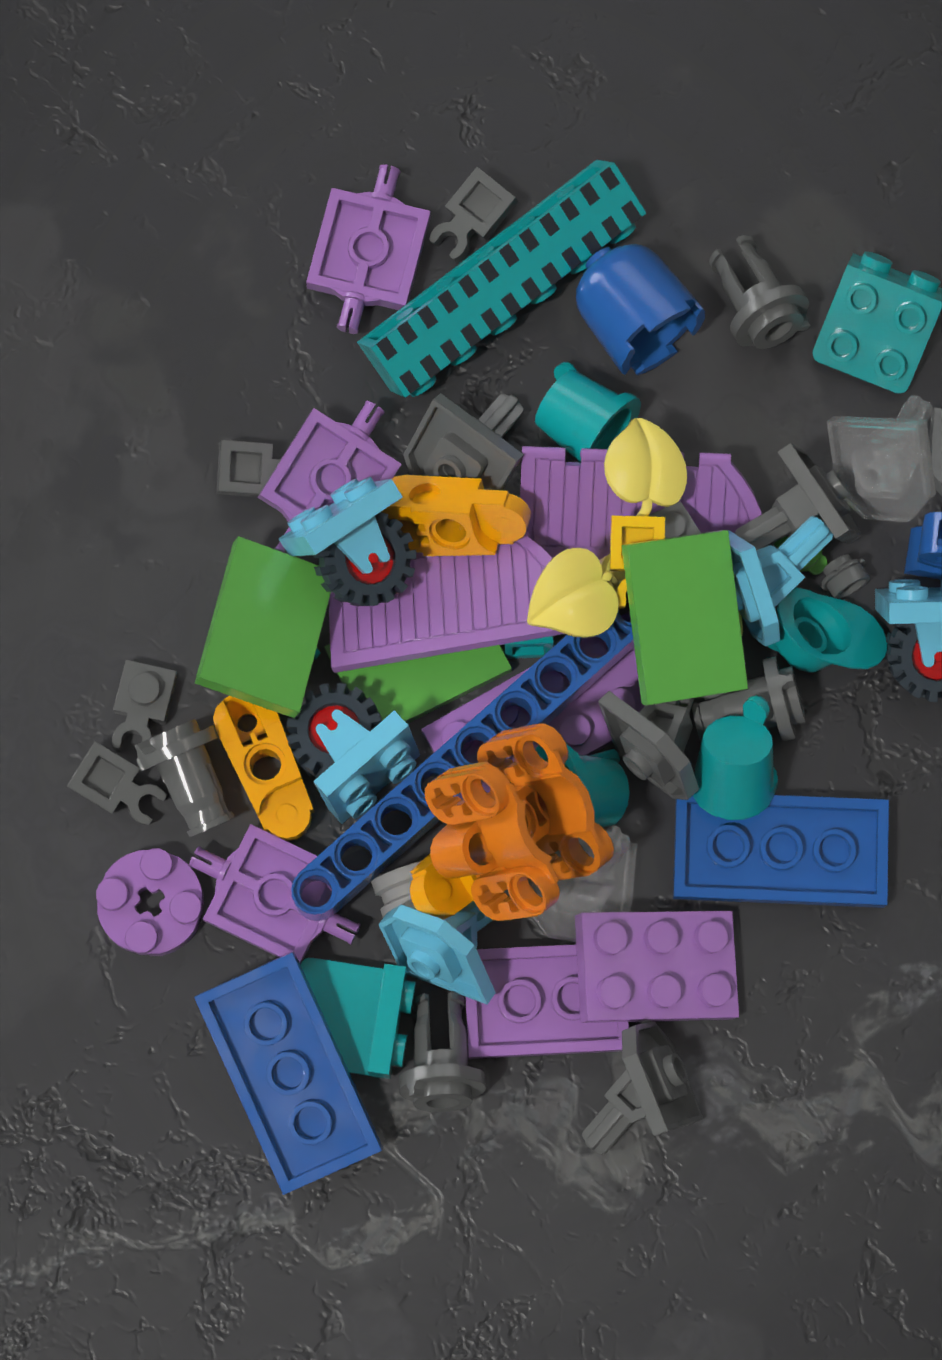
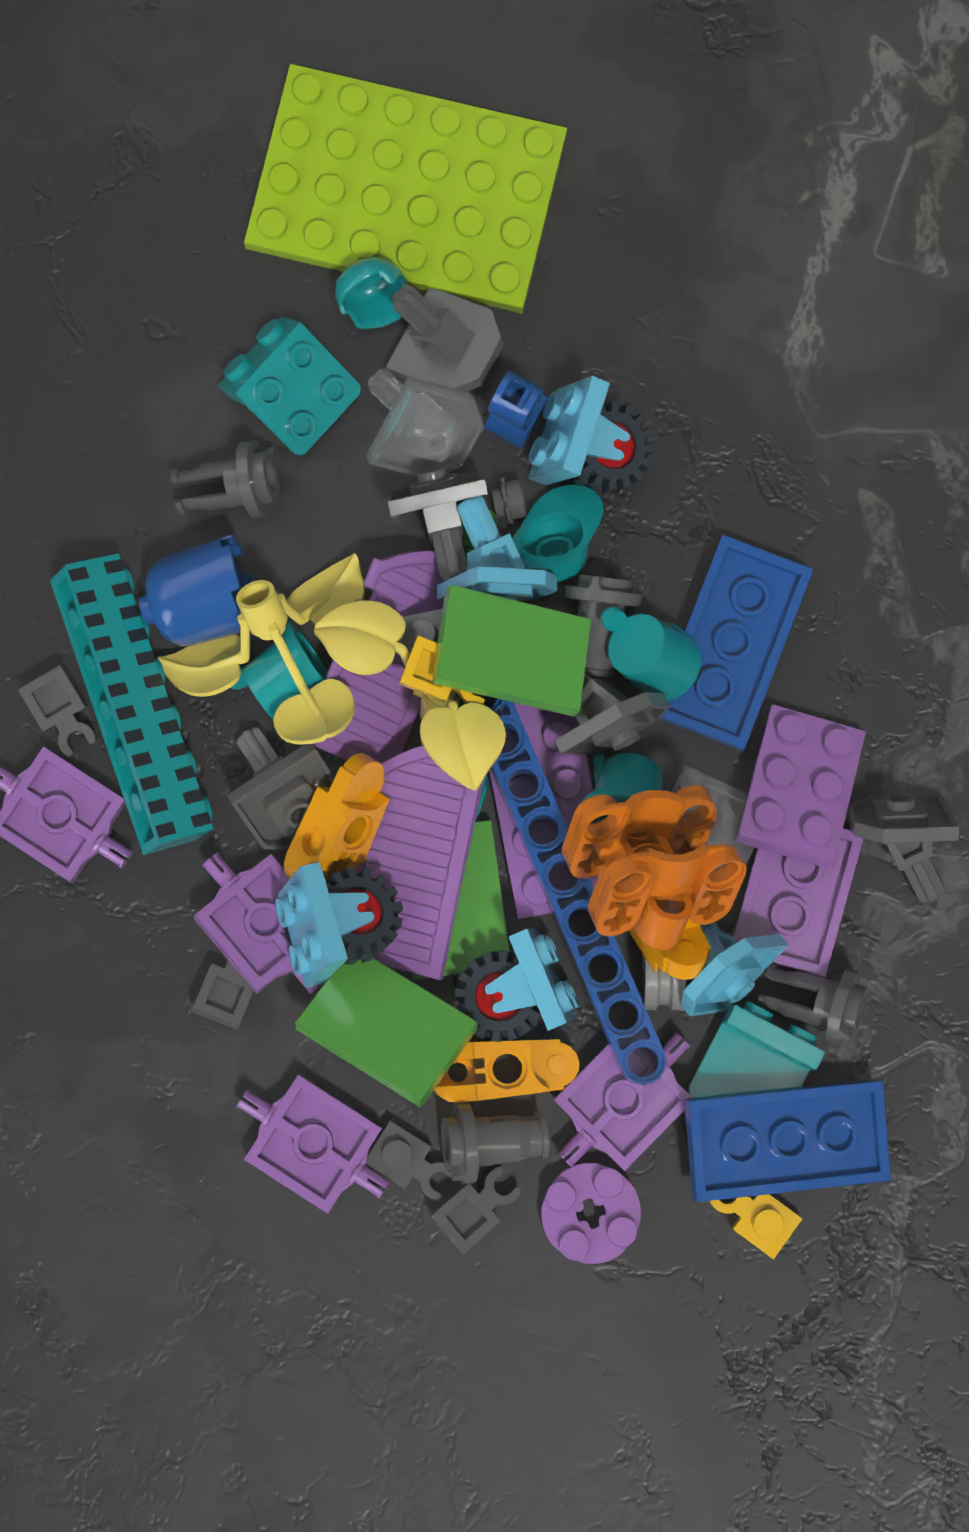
camera: 70 degrees left, 5 degrees up
(128, 604) = (313, 1143): none -> medium lavender plate
(198, 1079) = (761, 1221): none -> yellow plate
(568, 344) = (215, 667): none -> light yellow plant

